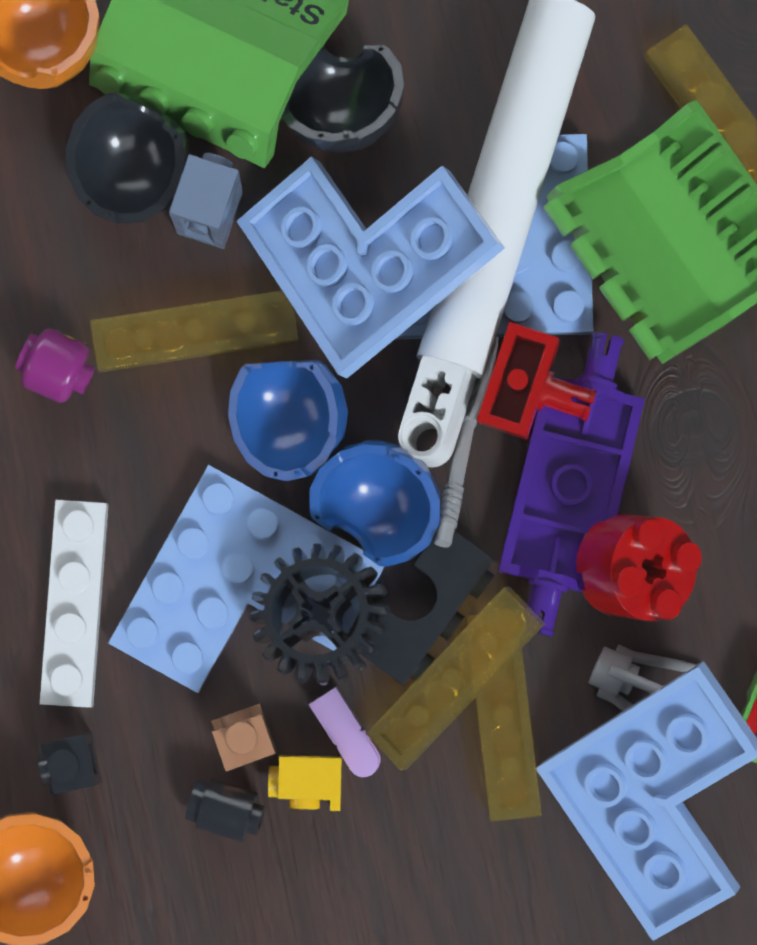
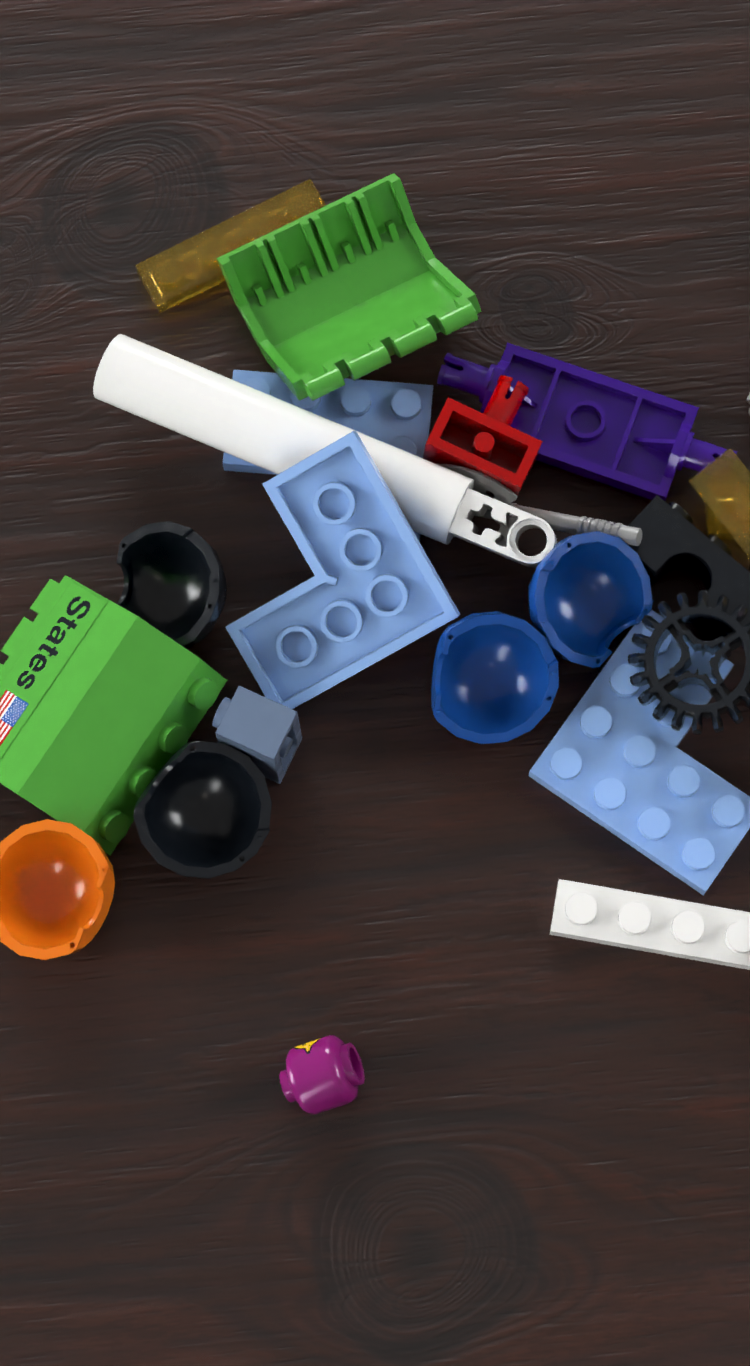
camera: 70 degrees left, 10 degrees down
(54, 365) = (409, 913): magenta head -> none
(193, 331) = (388, 771): clear yellow plate -> none
(638, 567) = (677, 361): red brick -> none

